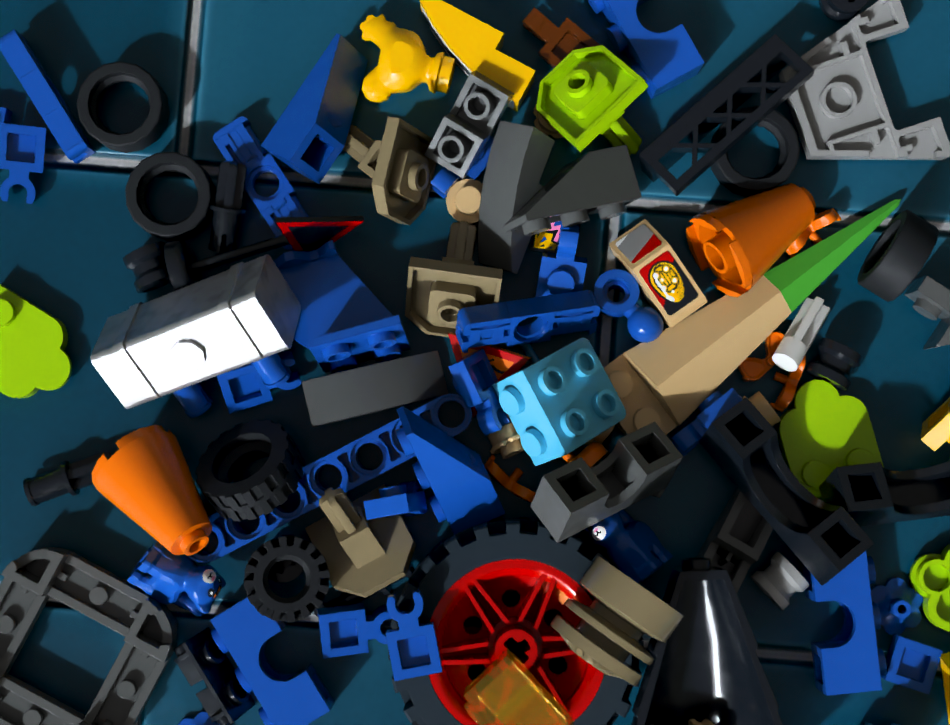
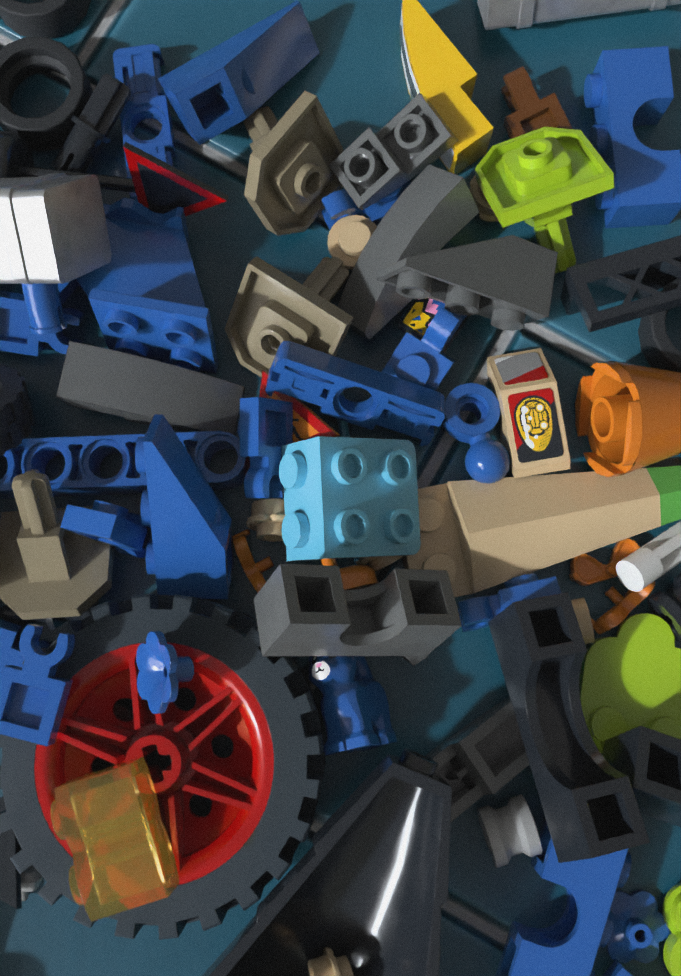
camera: 25 degrees right, 5 degrees down
(402, 62) = (354, 66): yellow animal -> none
(492, 586) = (160, 672): none -> blue plant
(615, 621) = (281, 788): dark tan wheel -> none

